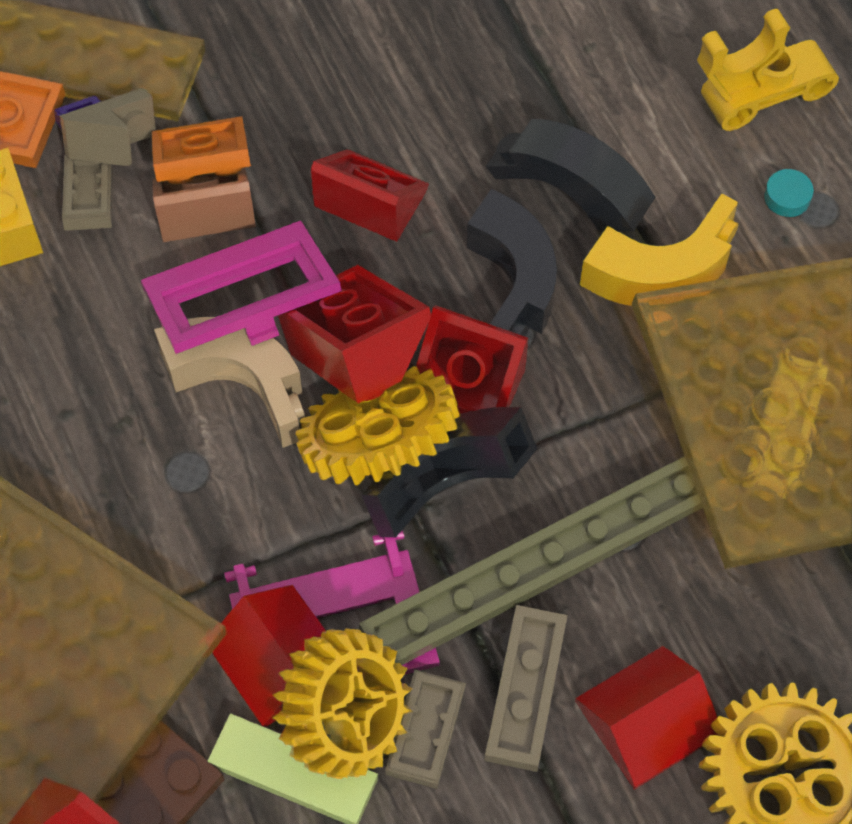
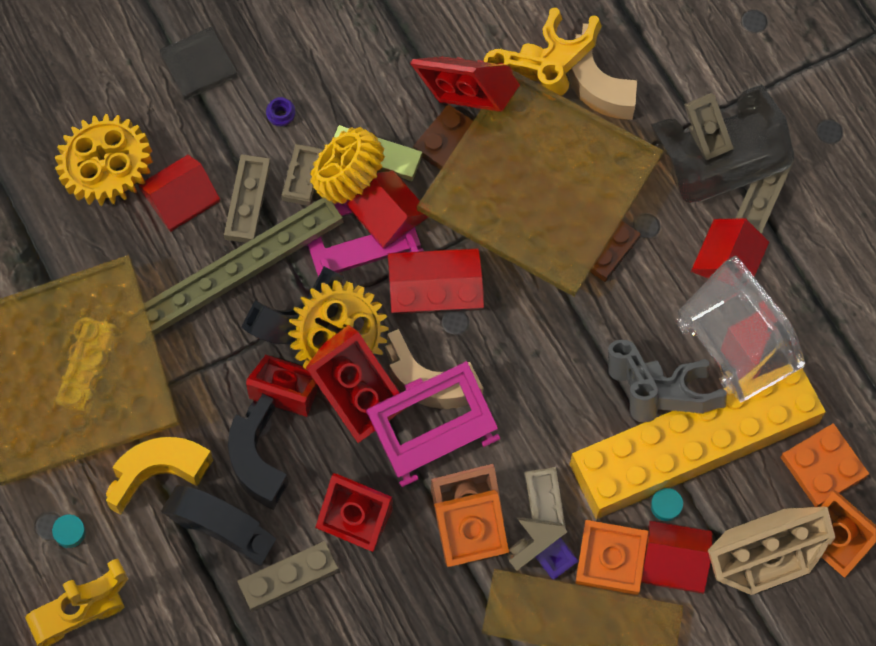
camera: 175 degrees right, 5 degrees up
(209, 506) = (435, 281): none -> red slope
(468, 123) = (288, 576): none -> dark tan plate

